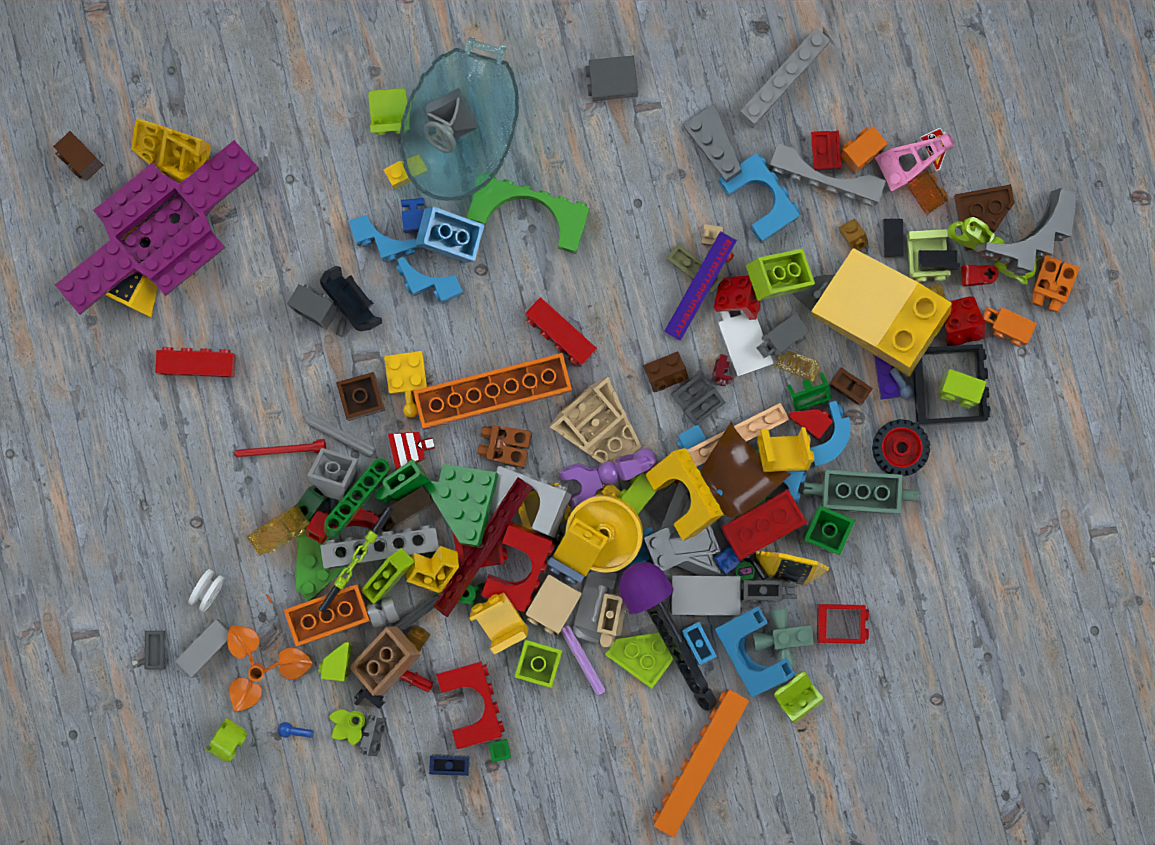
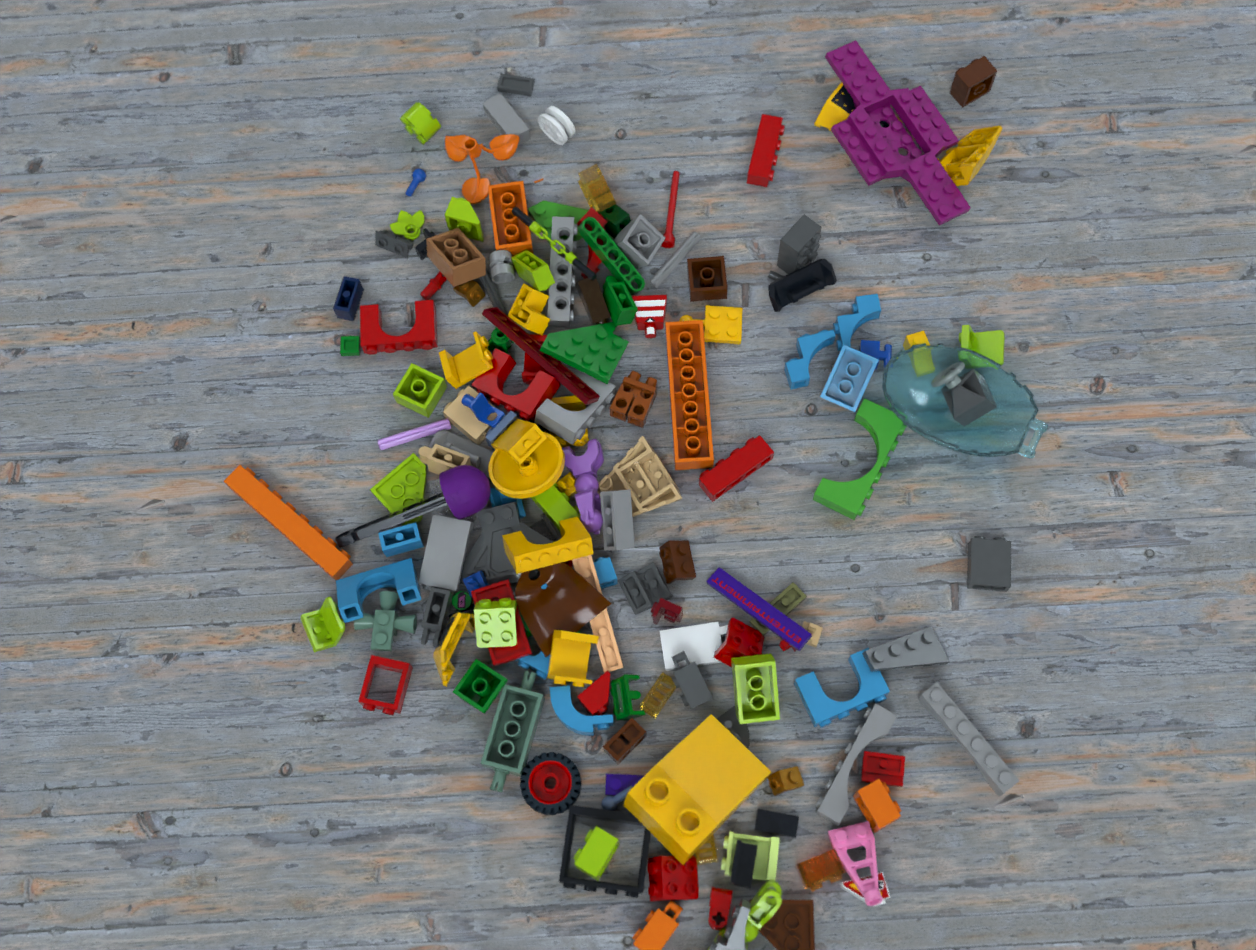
camera: 105 degrees right, 15 degrees down
(552, 593) = (482, 409): none -> blue bracket
(640, 435) = (617, 519): none -> light grey brick
(768, 527) = (495, 623): none -> lime bracket

